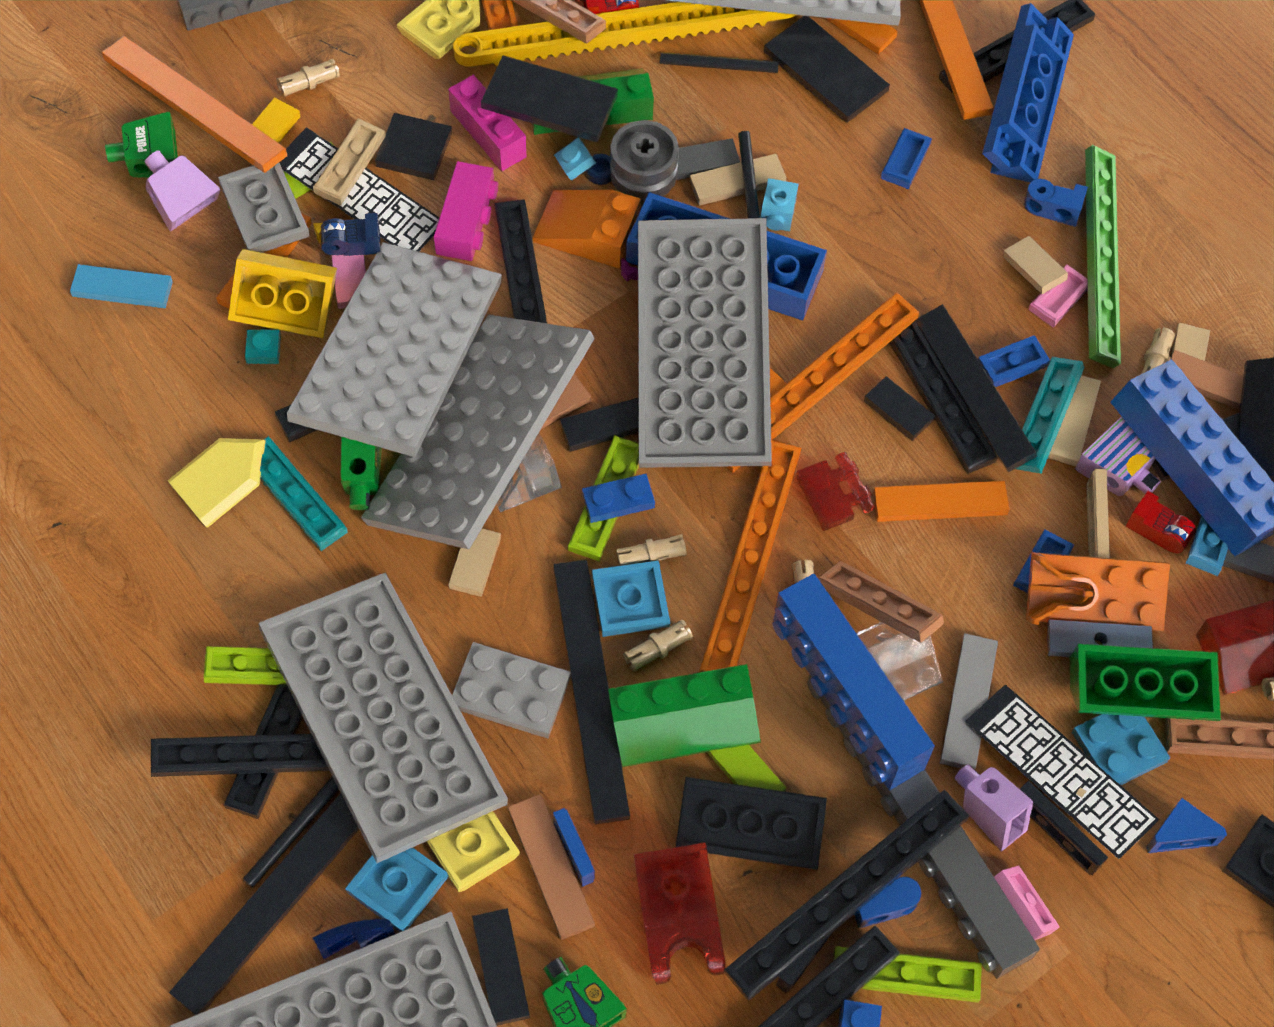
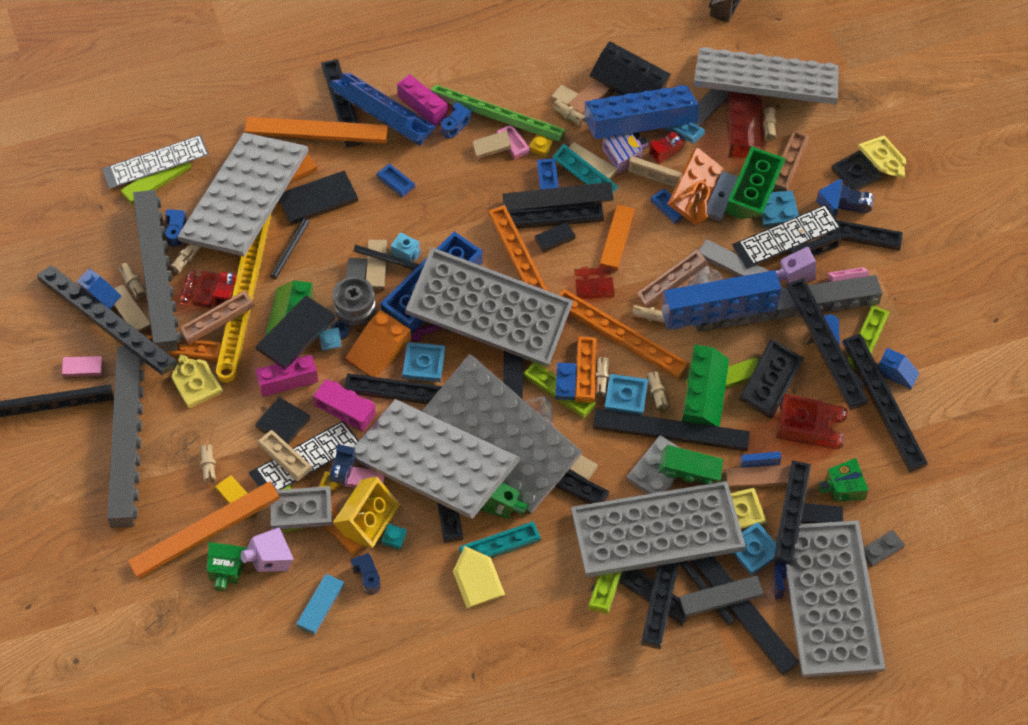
camera: 70 degrees left, 5 degrees down
(185, 328) = (368, 572): none -> dark blue leg
(284, 851) = (721, 596): none -> dark grey tile
(432, 583) = (582, 488): none -> black tile
(478, 924) = (792, 513): none -> black tile
(514, 731) = (690, 465): none -> green brick
(582, 292) = (423, 362): none -> dark azure plate
(655, 522) = (585, 369): none -> orange tile
(1071, 141) = (422, 100): none -> dark pink brick
(1072, 337) = (541, 145): none -> yellow plate
(1137, 918) = (870, 235): none -> black tile
(1201, 874) = (855, 200): none -> dark blue leg

